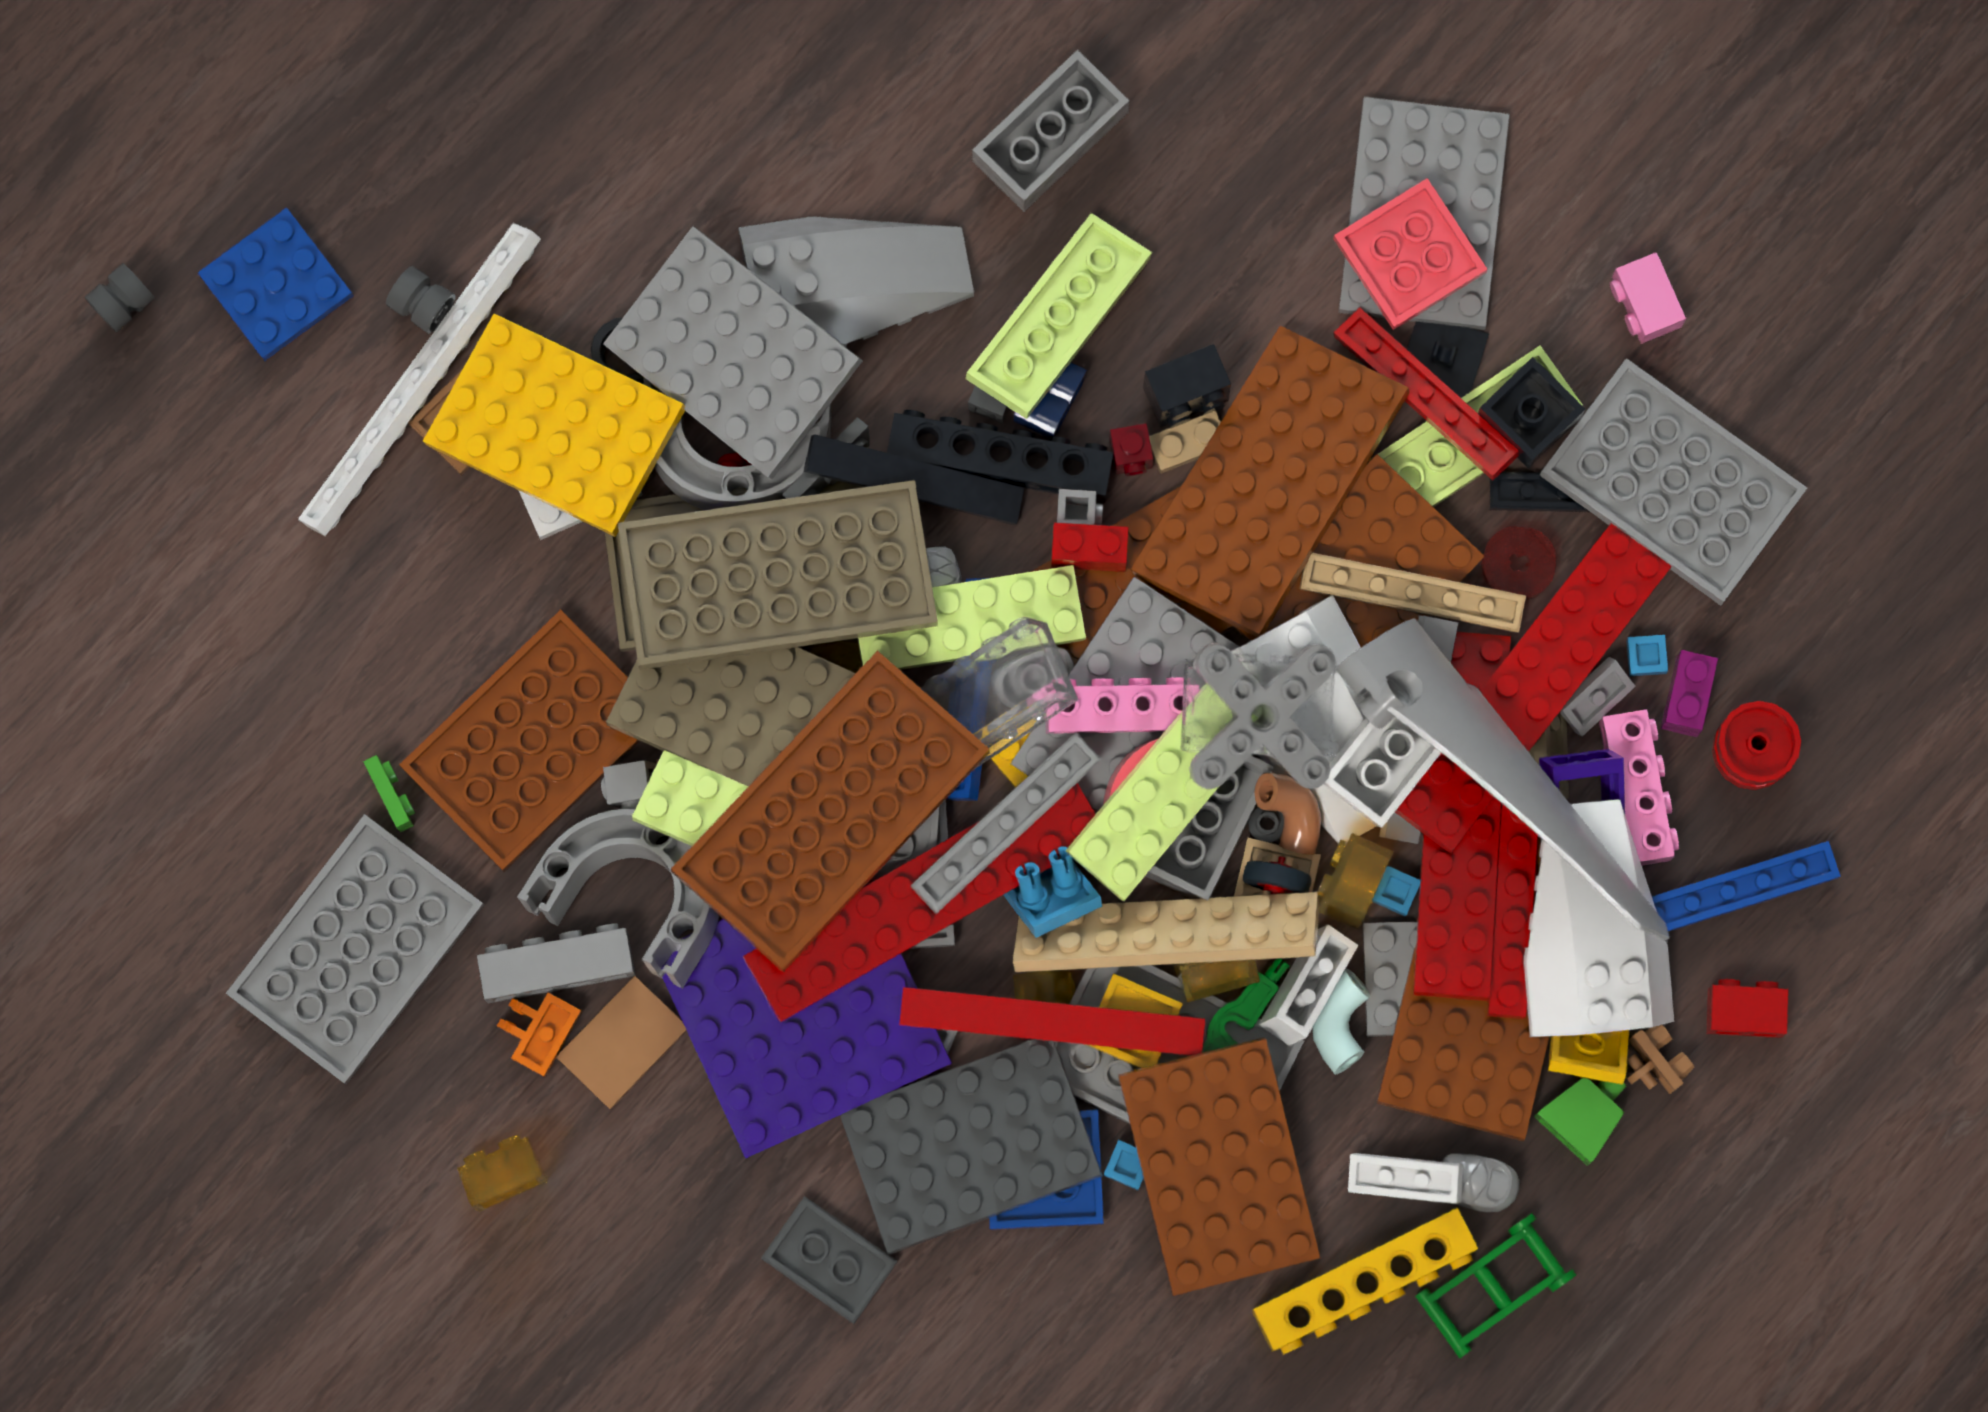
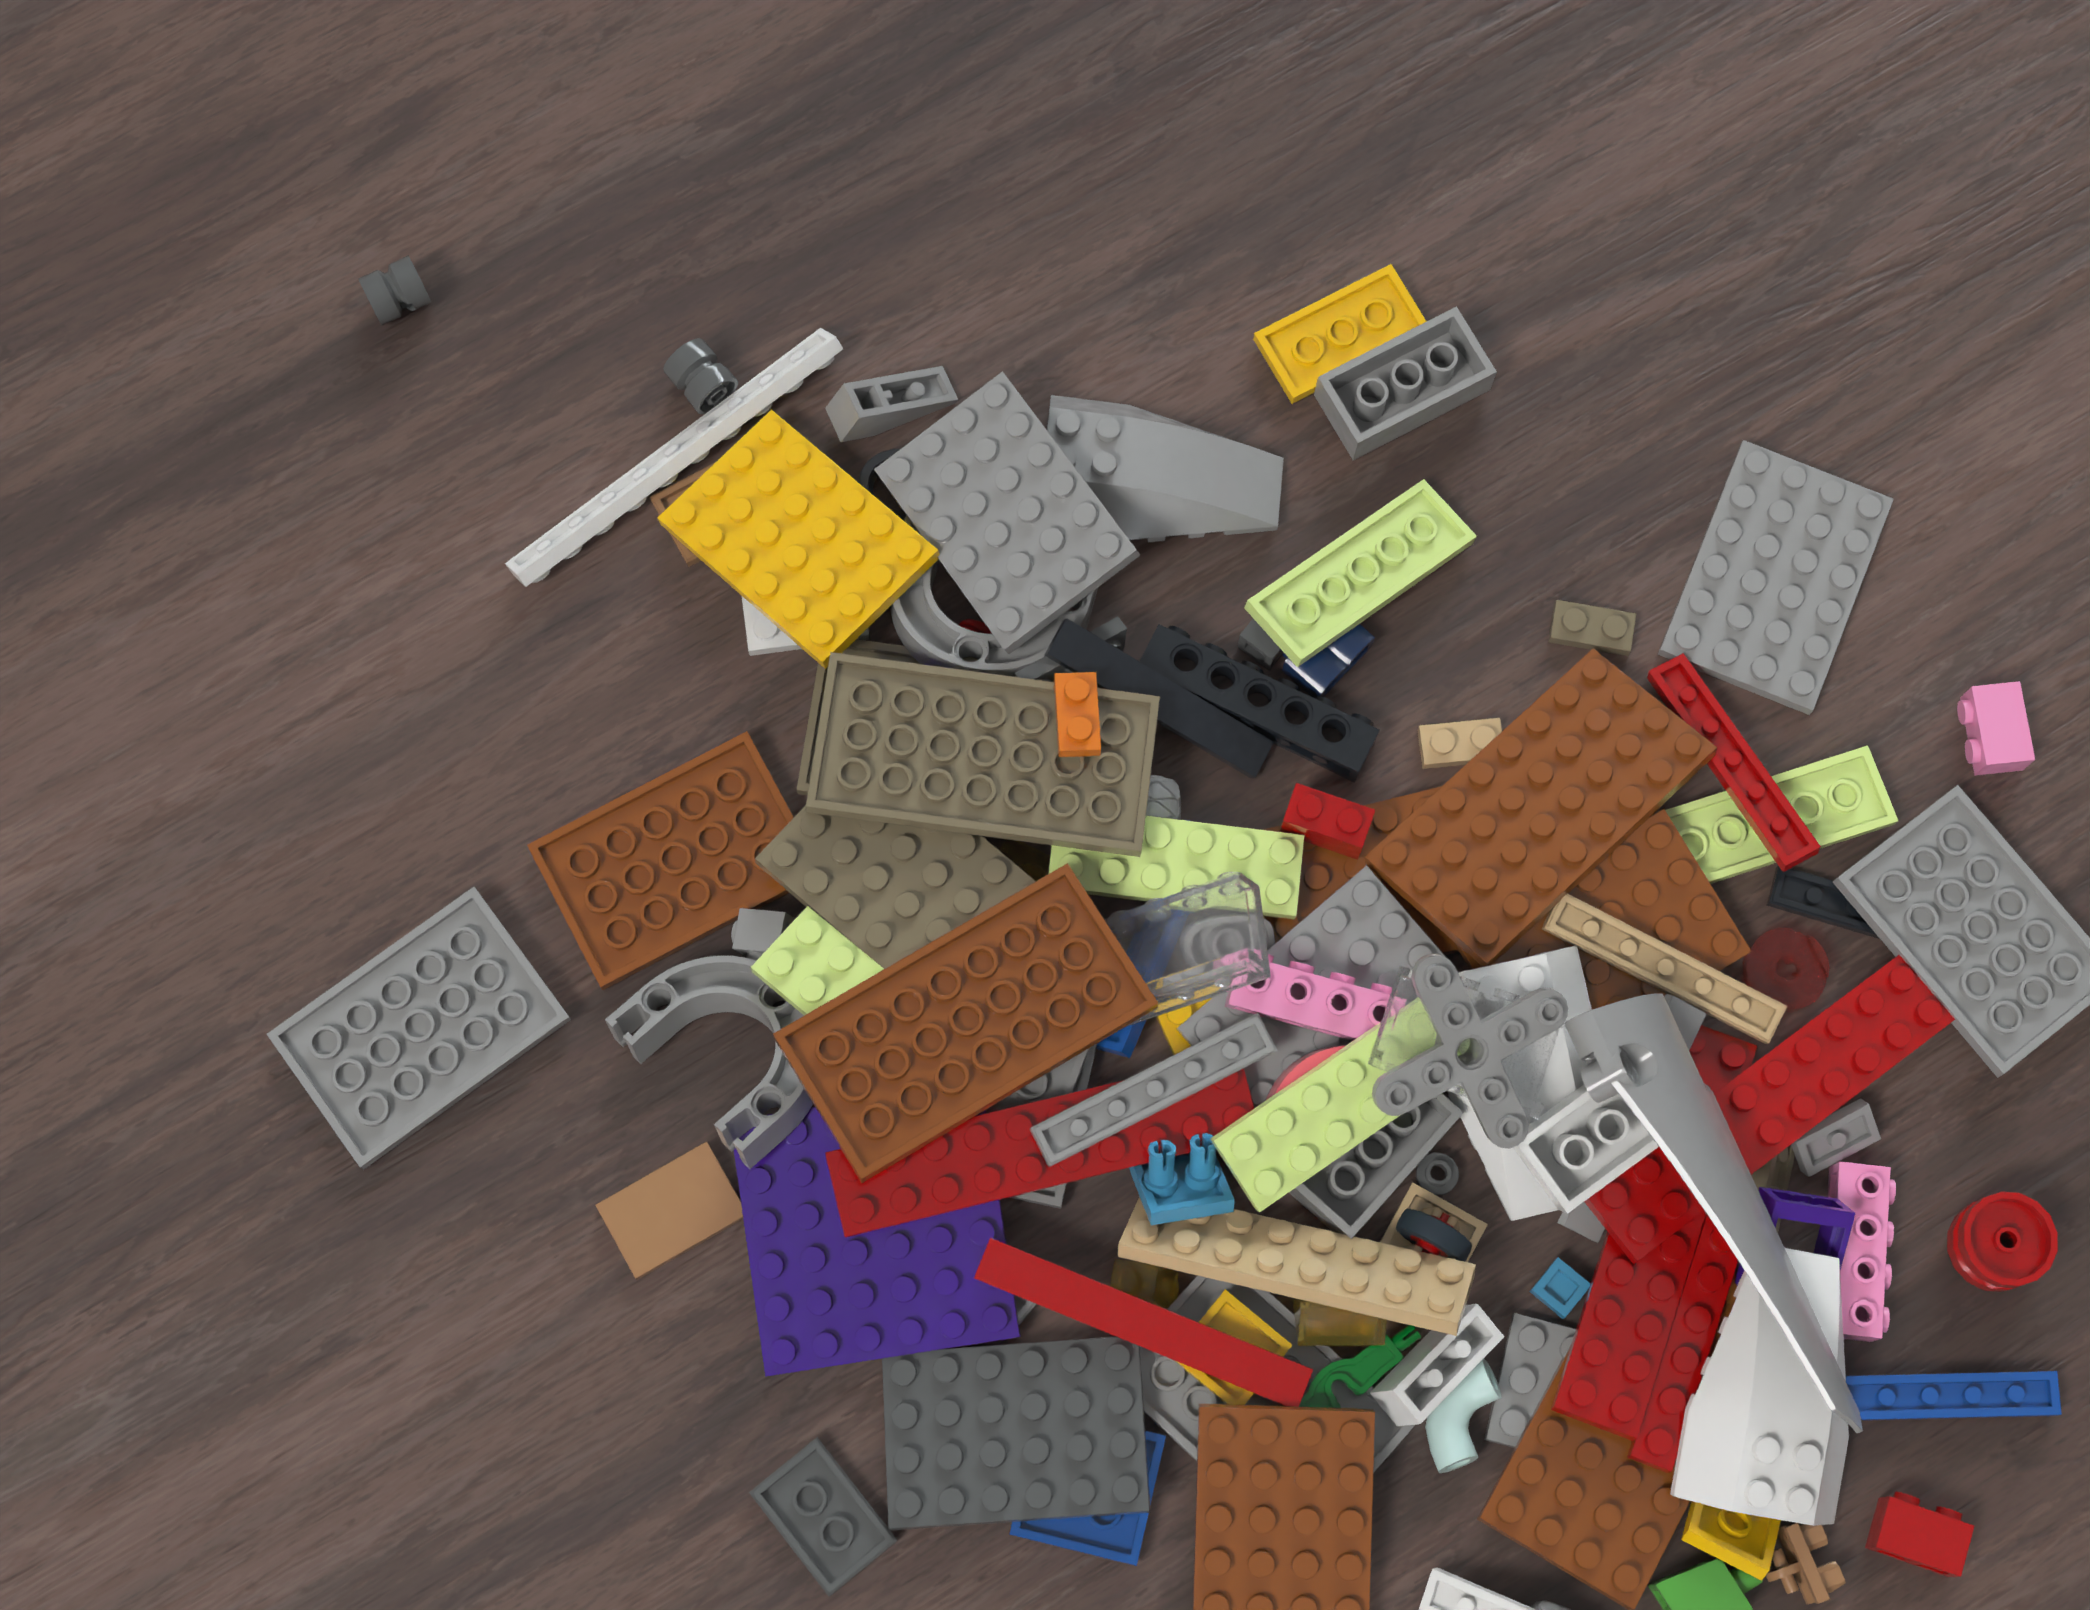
camera: 15 degrees right, 5 degrees down
(275, 284) = (559, 323): blue plate -> none
(397, 806) = (511, 889): bright green plate -> none
(502, 1173) = (495, 1315): clear yellow slope -> none
(545, 1033) = (591, 1176): orange hinge -> none
(556, 964) = (626, 1104): light grey brick -> none
(596, 275) = (887, 402): none -> light grey slope
(848, 517) = (1077, 714): none -> orange plate
(979, 97) = (1337, 330): none -> yellow plate
(1079, 507) = (1327, 775): light grey brick -> none
(1125, 1166) = (1178, 1507): dark azure plate -> none
(1131, 449) = (1399, 733): dark red brick -> none
(1187, 387) = (1478, 682): black brick -> none
(1275, 305) = (1592, 627): none -> dark tan plate
(1298, 808) = (1477, 1164): nougat cylinder -> none
(1355, 880) = (1519, 1263): clear yellow brick -> none
(1410, 254) = (1753, 611): coral plate -> none
(1449, 353) = (1767, 726): black piece -> none
(1532, 411) = (1846, 809): black brick -> none
(1647, 655) = (1902, 1109): dark azure plate -> none
(1689, 693) = (1939, 1163): magenta brick -> none

